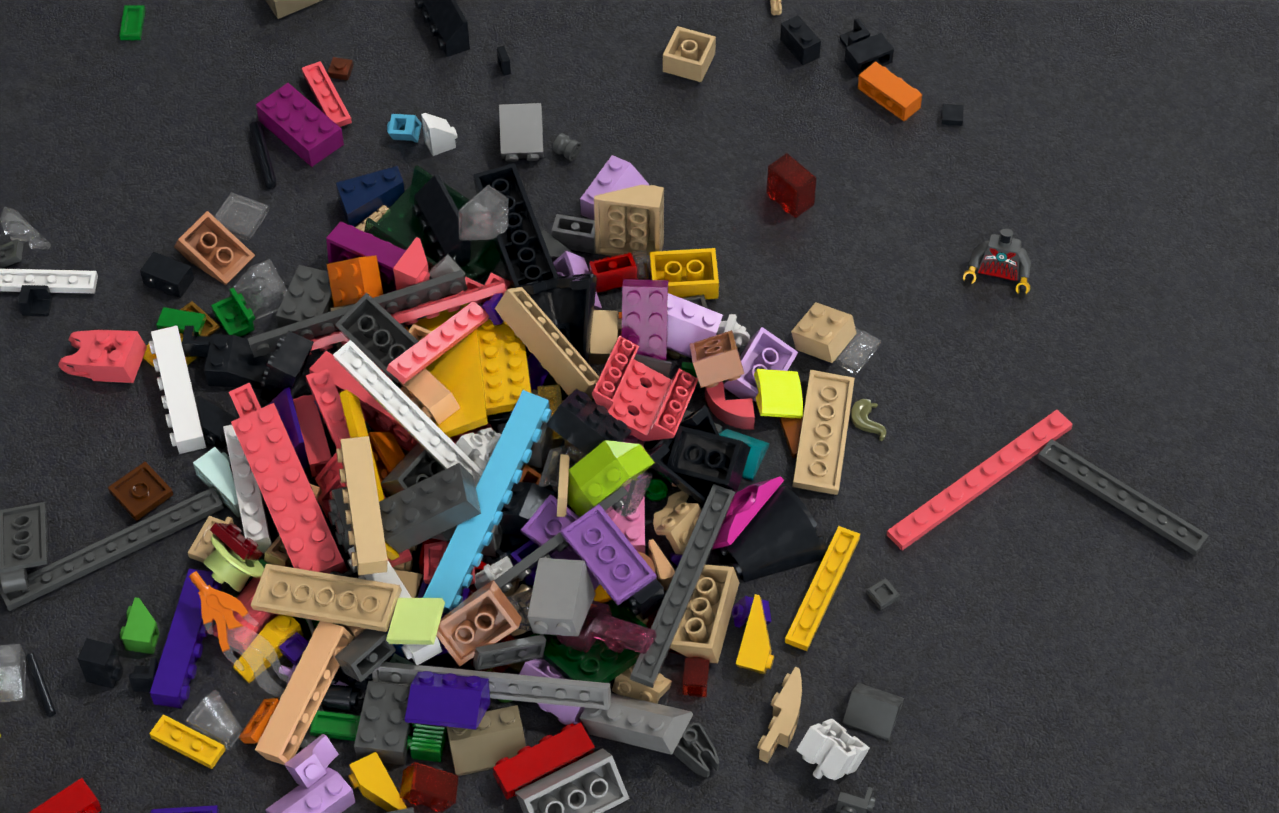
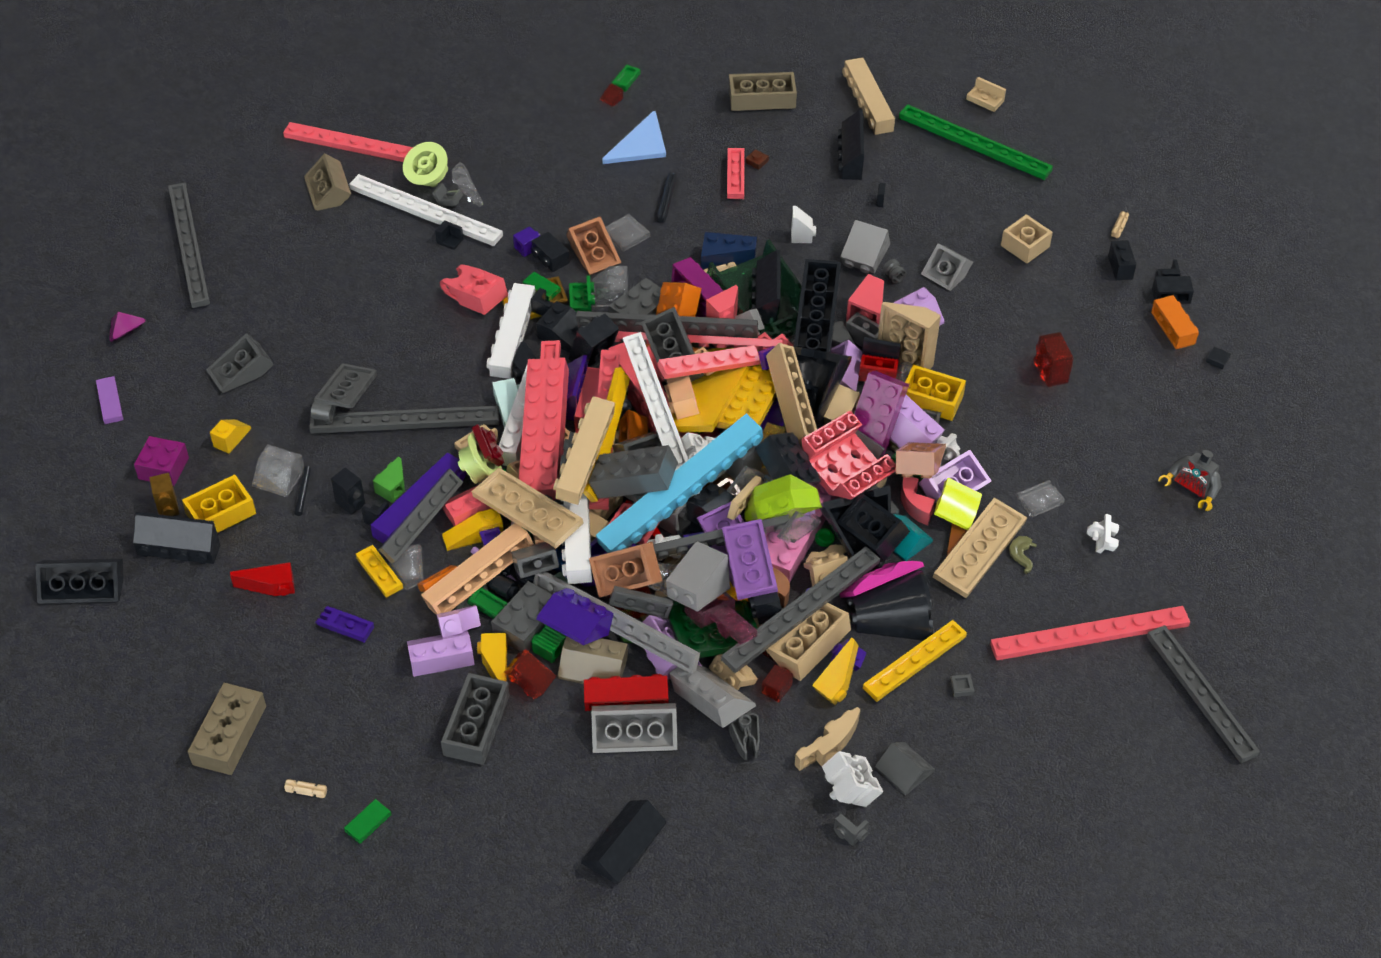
camera: 25 degrees right, 5 degrees down
(129, 50) = (612, 95): none -> clear red slope
(129, 274) = (523, 242): none -> dark purple brick
(140, 491) = (447, 389): reddish brown plate -> none
(195, 99) = (640, 144): none -> light blue tile
(200, 674) = (420, 516): none -> dark grey plate
(234, 636) = (450, 510): piece -> none
(300, 124) = (704, 185): magenta brick -> none
(400, 122) = (779, 214): medium azure brick -> none
(415, 621) = (580, 548): yellowish green tile -> none
(484, 216) = (793, 287): clear slope -> none
(562, 196) = (867, 299): none -> coral slope
(606, 248) = (881, 348): none -> black slope
(620, 120) = (946, 267): none -> light grey slope
(663, 569) = (796, 587): light nougat slope -> none
(823, 332) = (1020, 474): tan brick -> none
(938, 362) = (1102, 534): none -> white hips

